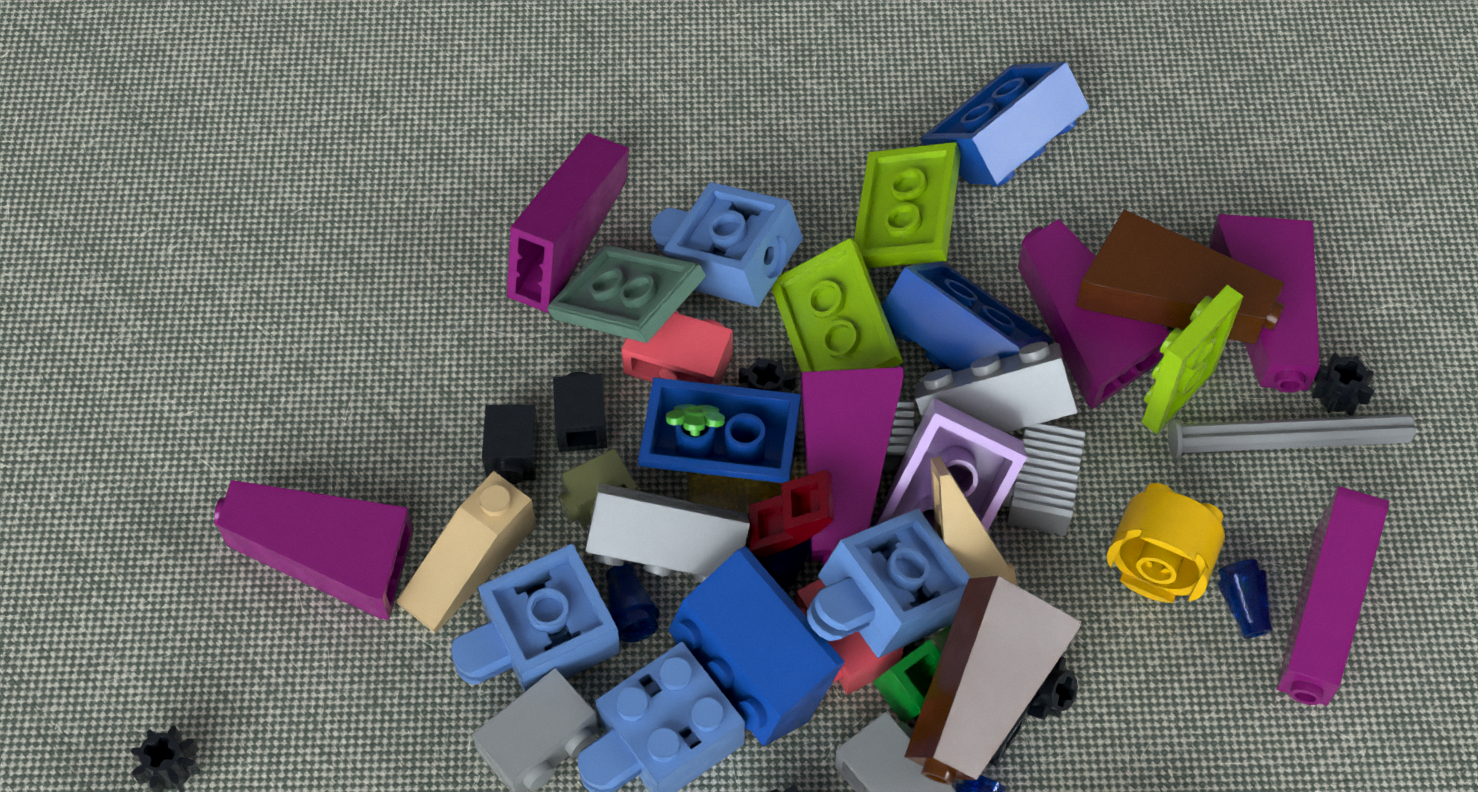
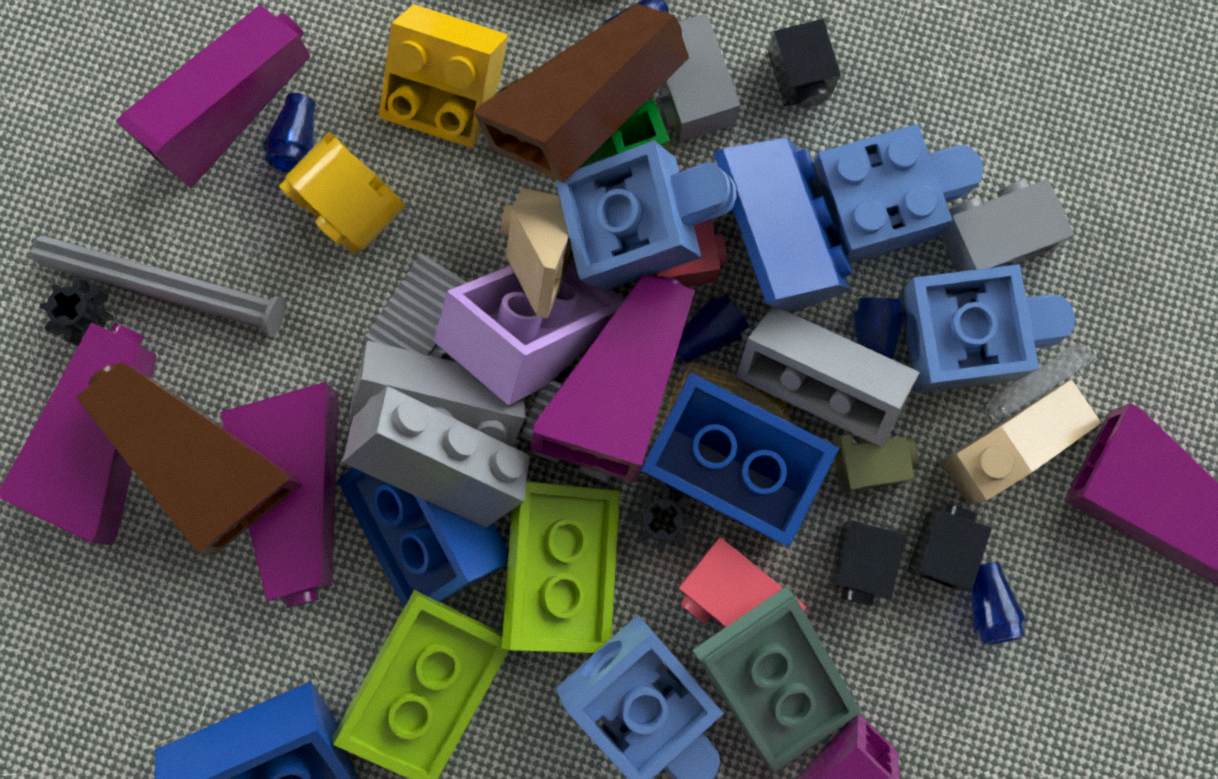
camera: 160 degrees left, 20 degrees up
(456, 413) = (995, 607): none -> clear blue cone
(464, 607) = (1037, 382): none -> clear tile
(695, 417) = (767, 467): bright green plant -> none
(793, 516) = (705, 325): dark red slope -> none
(972, 335) = (436, 458): none -> light grey brick
(1138, 699) = (440, 73): none -> yellow slope
(1190, 357) = (217, 358): lime plate -> none

